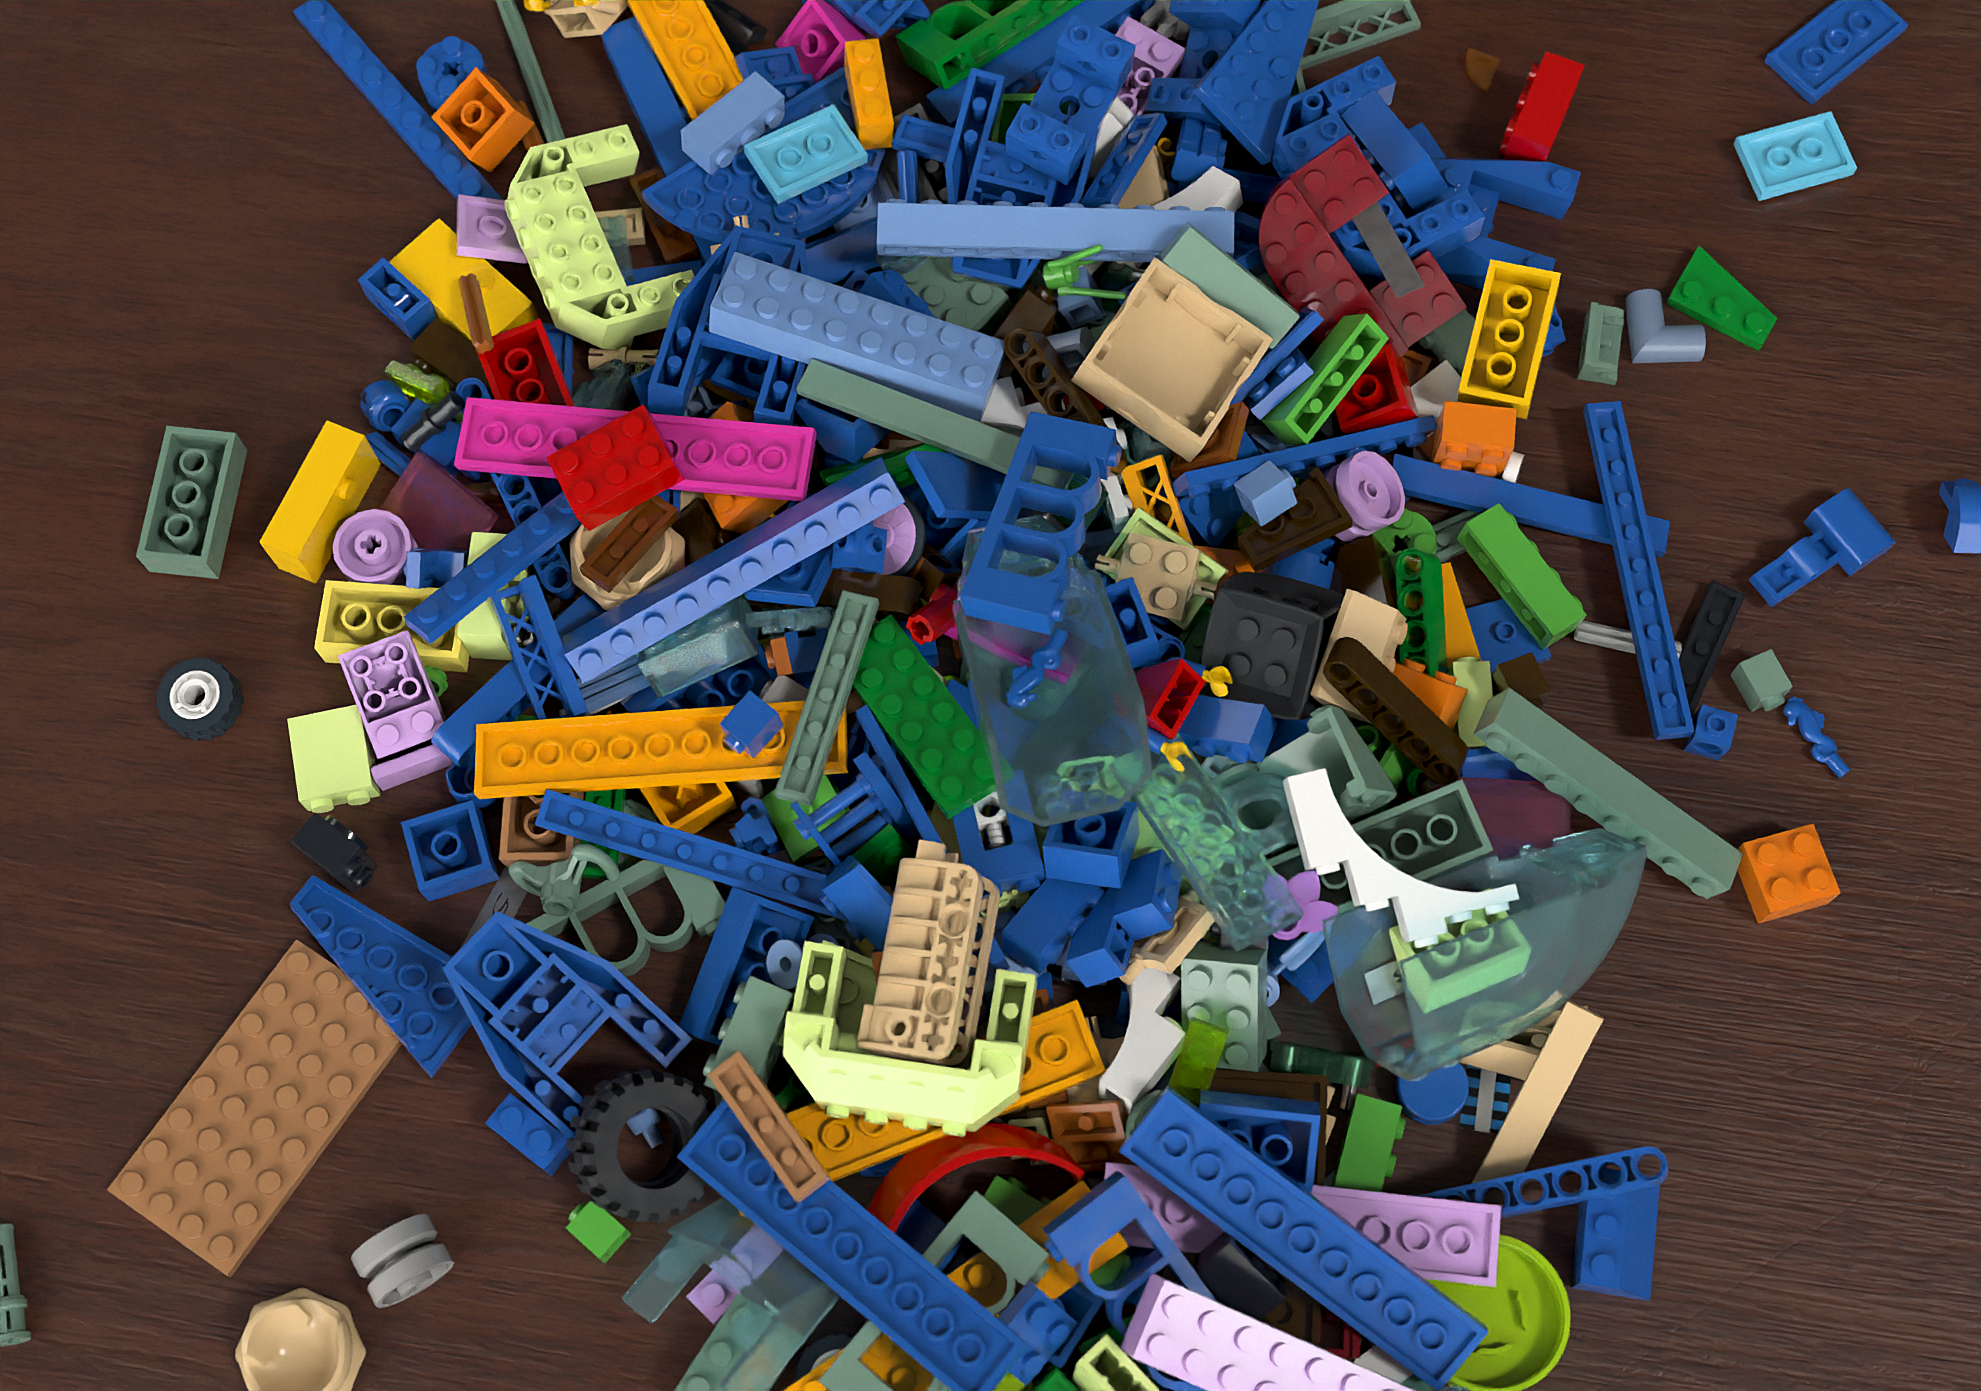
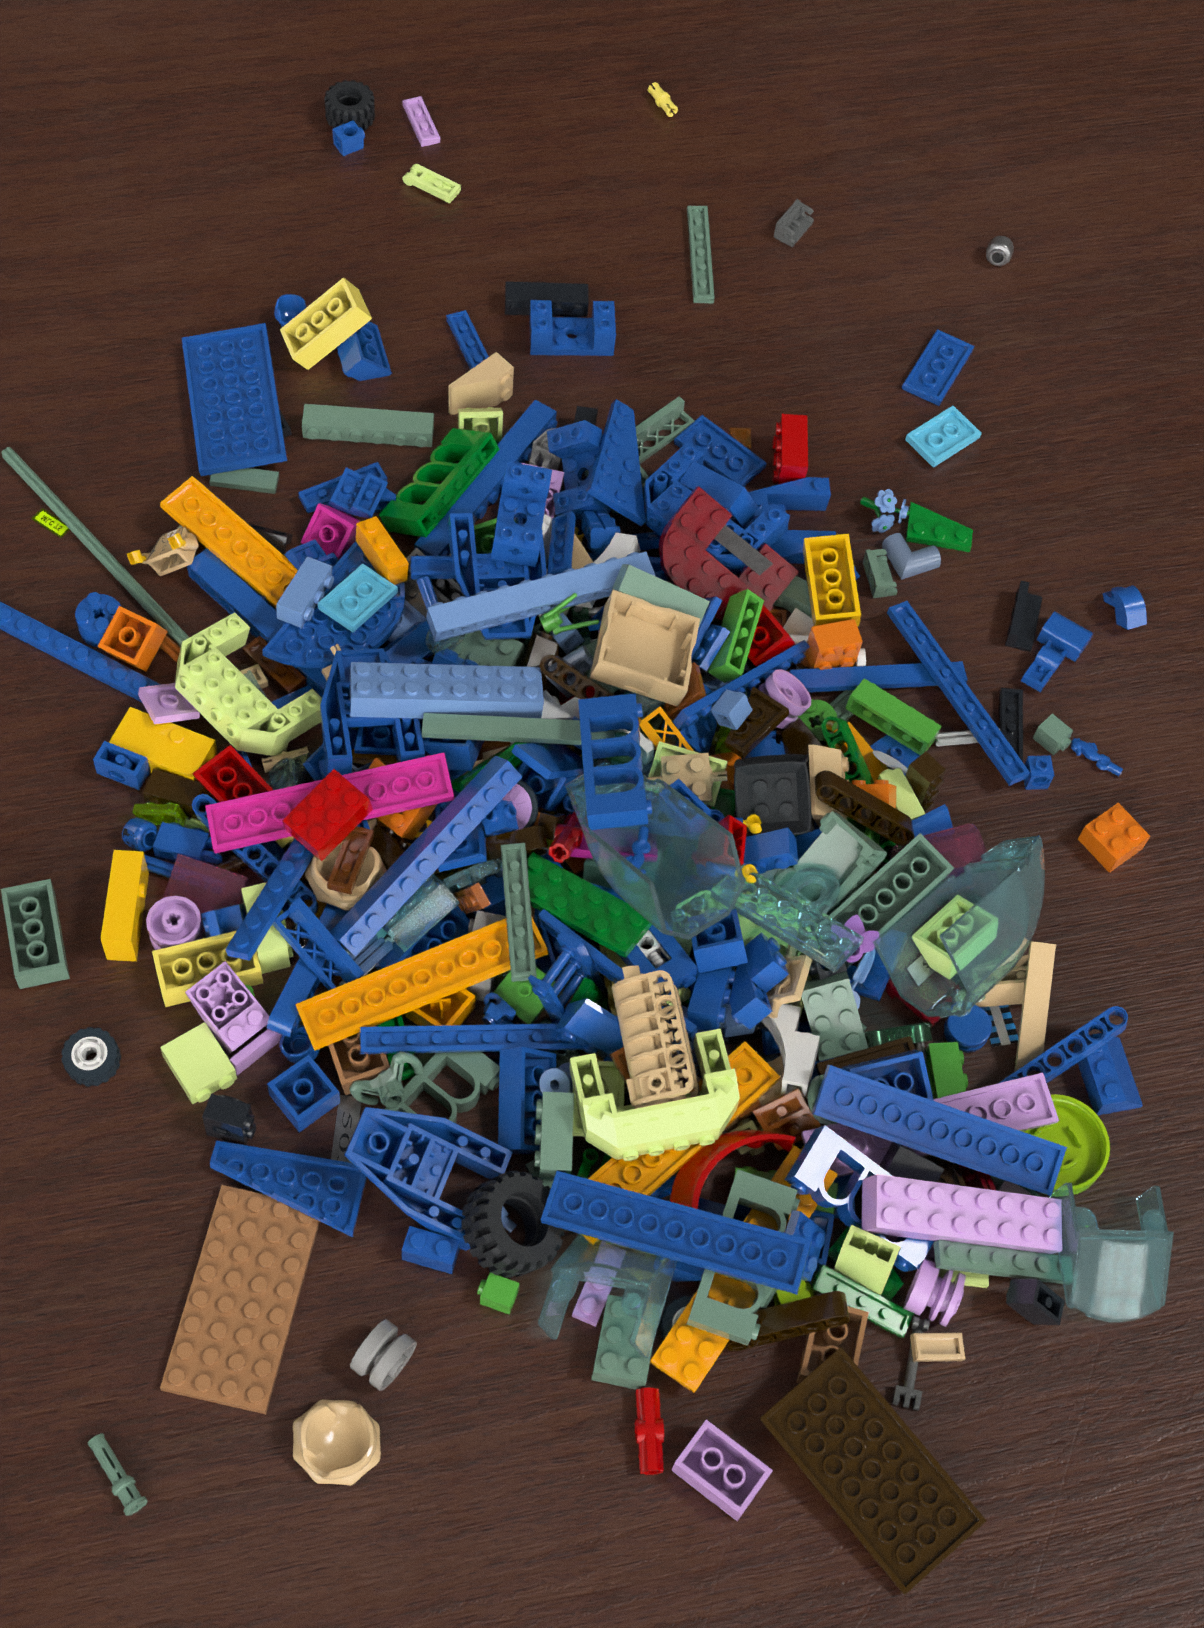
camera: 30 degrees left, 10 degrees down
(433, 421) = (184, 829): black pin -> none
(476, 313) = (186, 754): dark orange axle -> none
(750, 725) = (479, 942): blue brick -> none
(769, 1126) = (595, 1175): medium nougat plate -> none
(1198, 1059) = (832, 1047): clear neon green plate -> none
(1328, 839) = (861, 893): white arch -> none
(1438, 83) = (721, 451): none -> blue tile
(1483, 643) = (889, 761): none -> white sticker
(1607, 793) = (997, 819): sand green brick -> none
(1651, 237) = (885, 503): none -> medium blue plant
(1797, 484) = (1023, 619): none -> black panel

